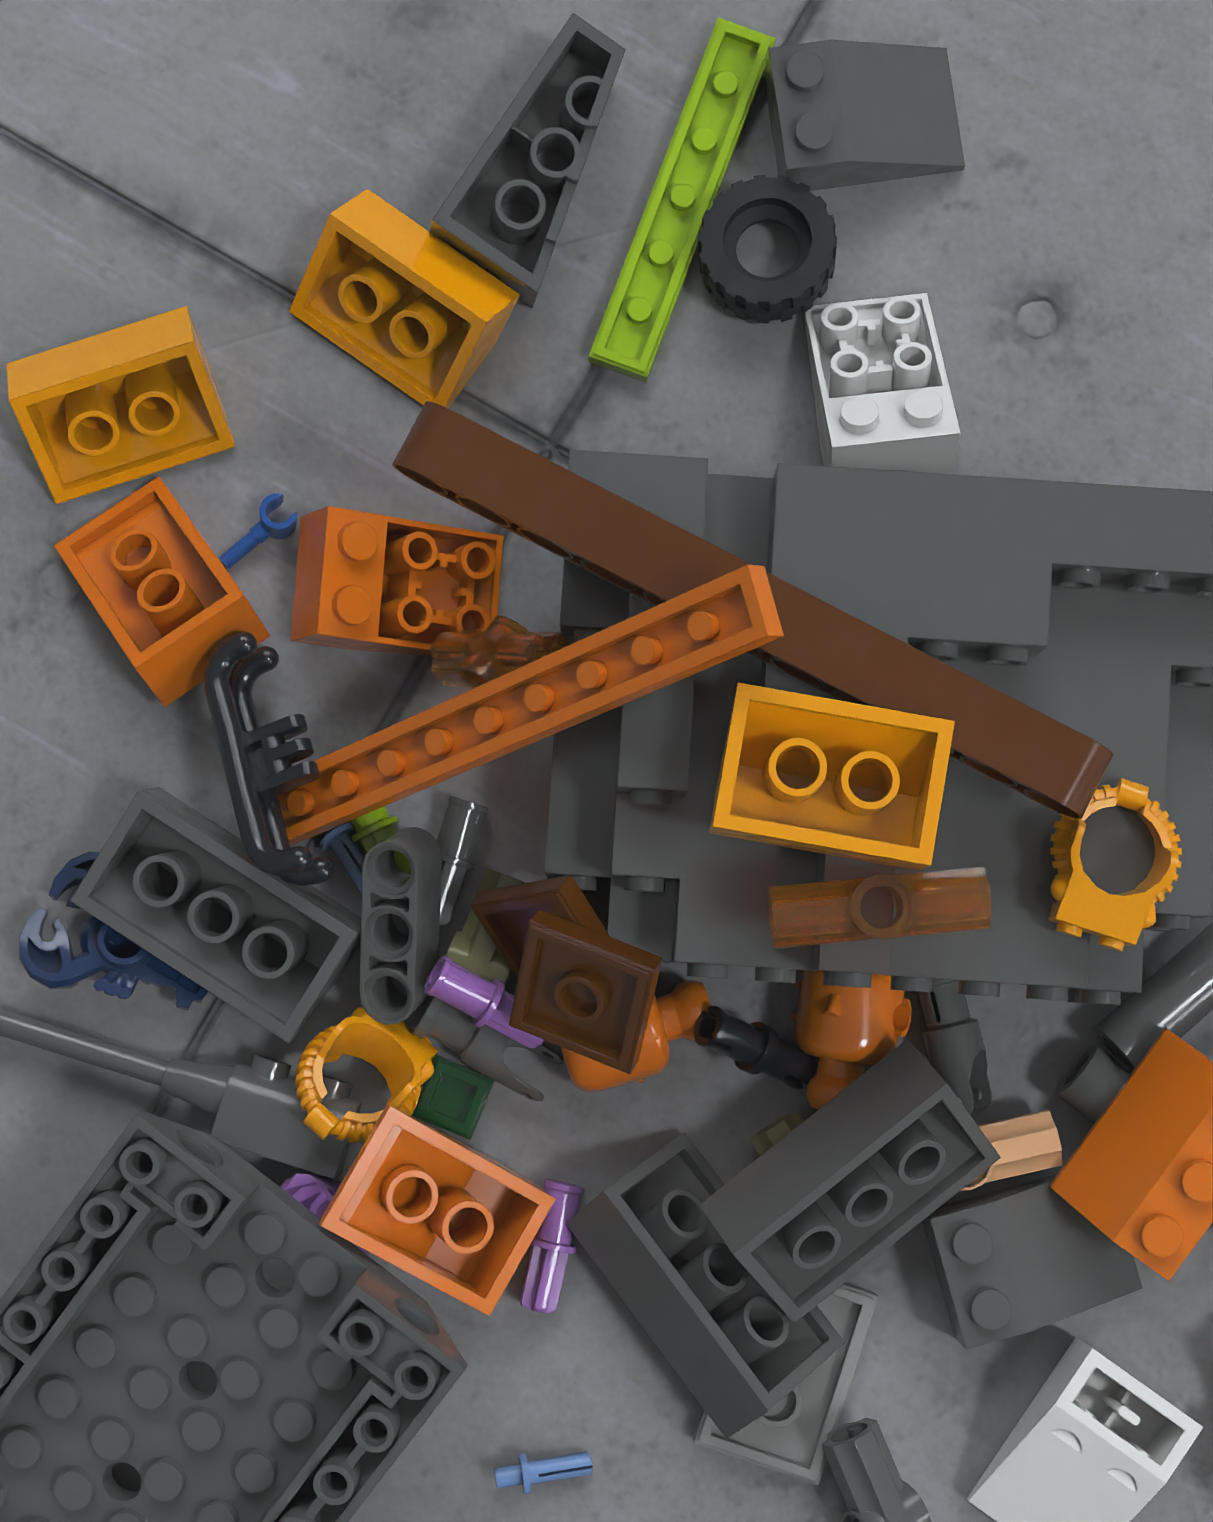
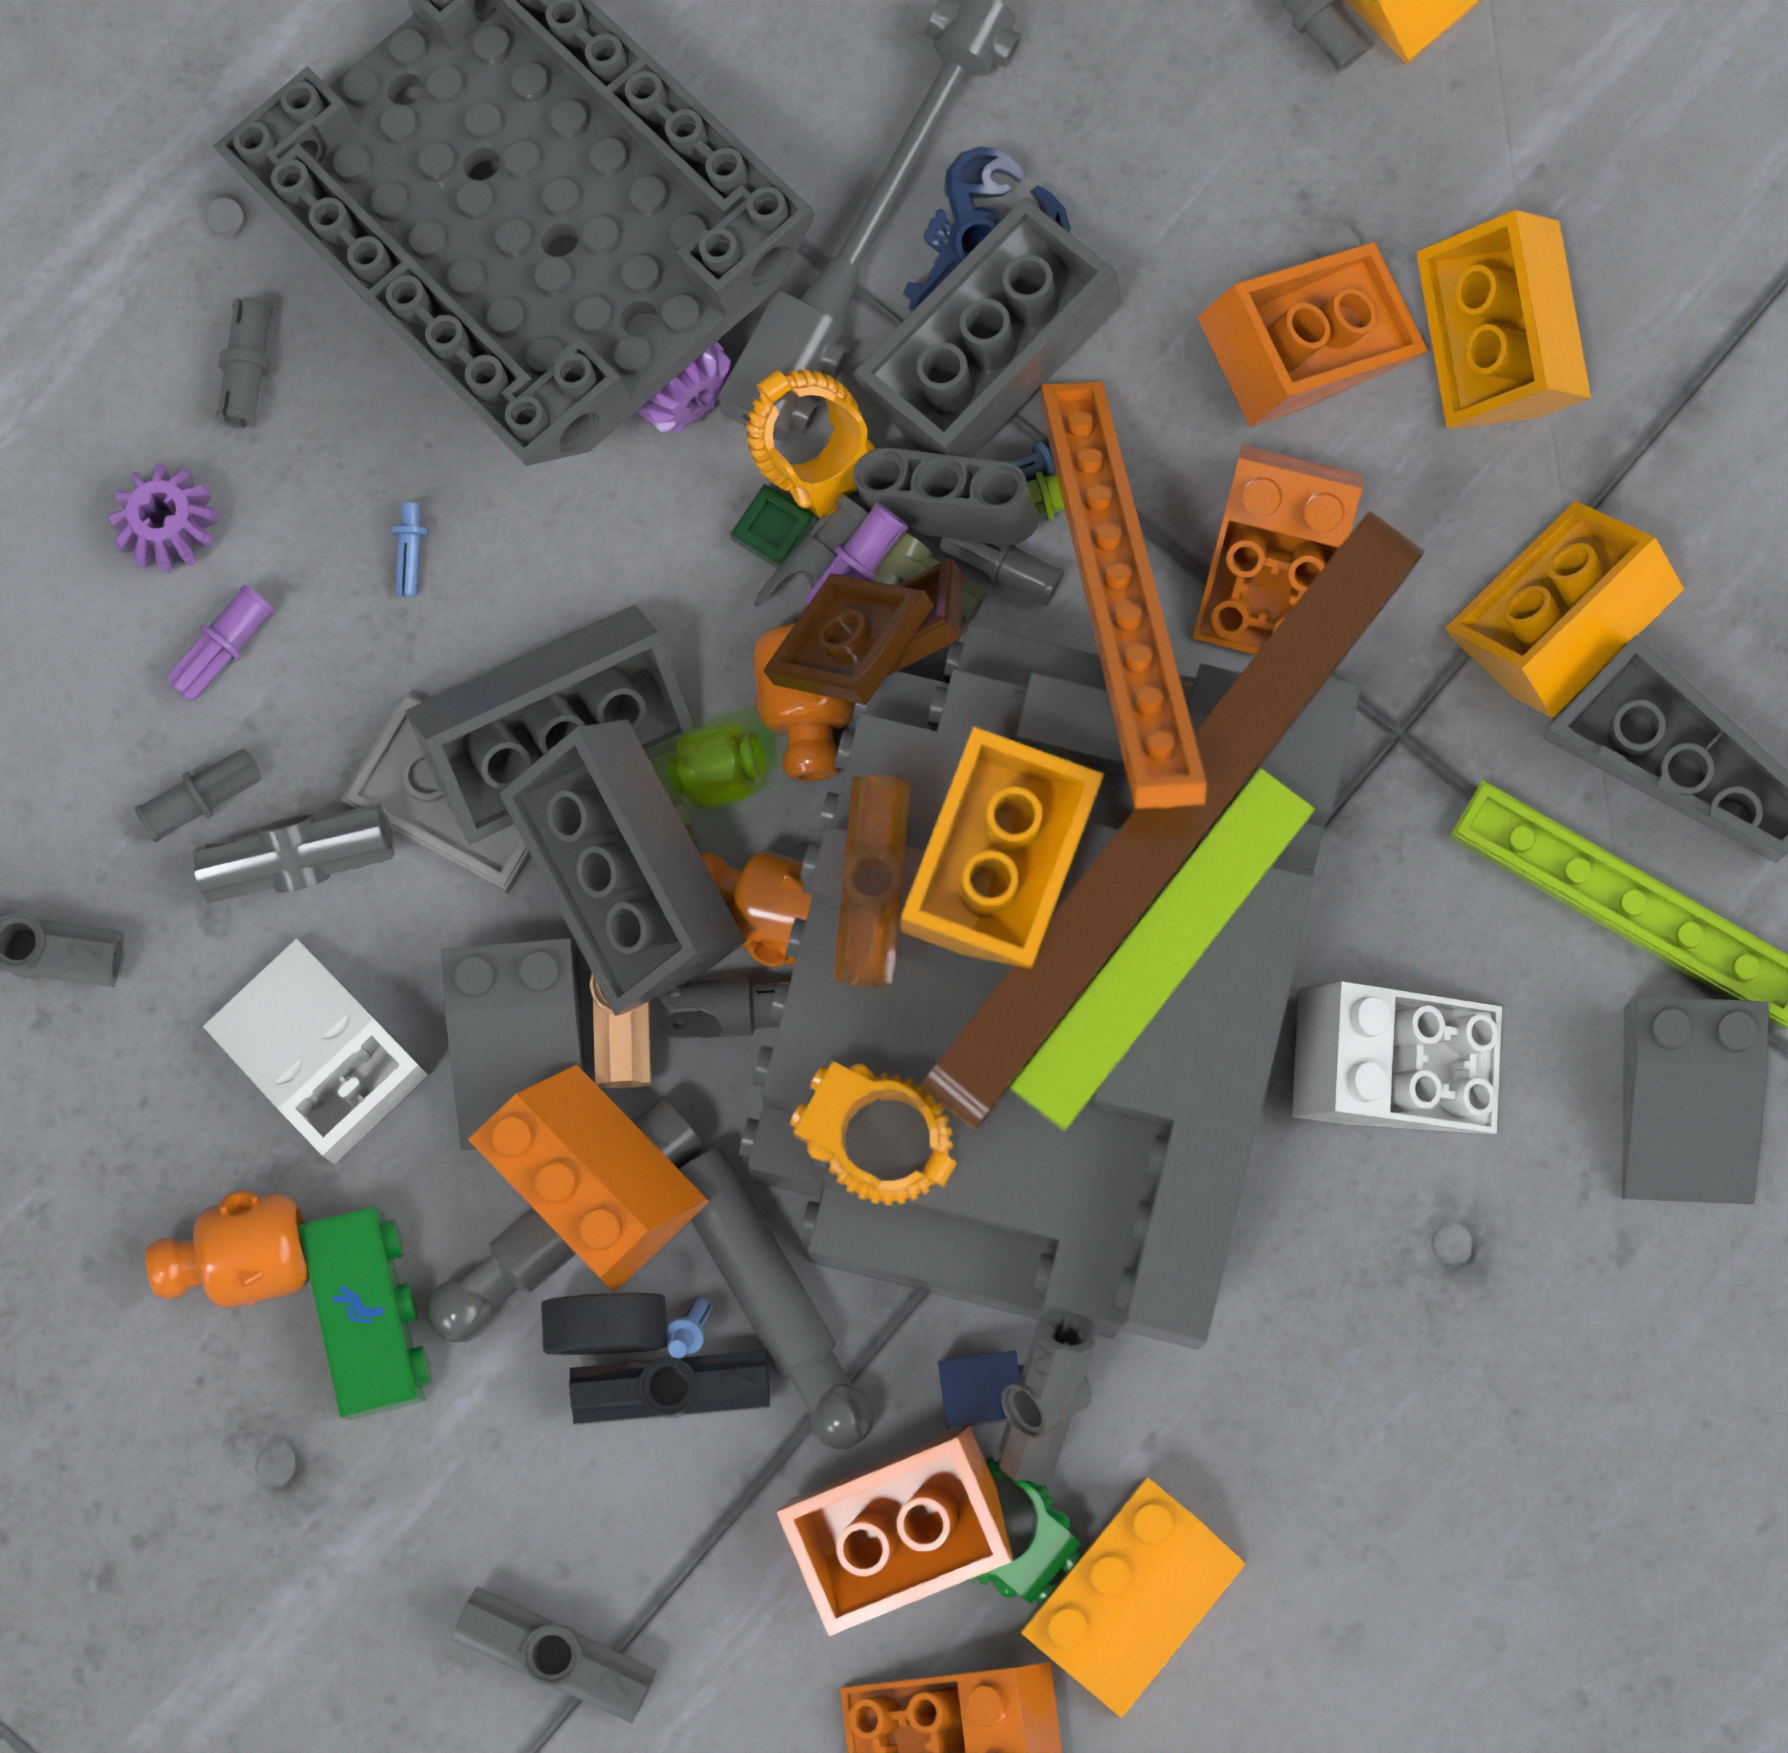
camera: 105 degrees right, 5 degrees down
(260, 760) = (1127, 387): black piece -> none
(261, 531) = (1356, 437): blue hand -> none
(437, 1209) = (672, 480): orange slope -> none
(481, 656) = (1191, 611): clear orange piece -> none
(551, 1249) = (614, 590): medium lavender axle -> none
(713, 1105) = (718, 764): none -> clear neon green head
(754, 1047) = (766, 807): black pin -> none
(767, 201) = (1605, 947): black tyre -> none
(888, 597) = (1162, 950): none -> lime tile

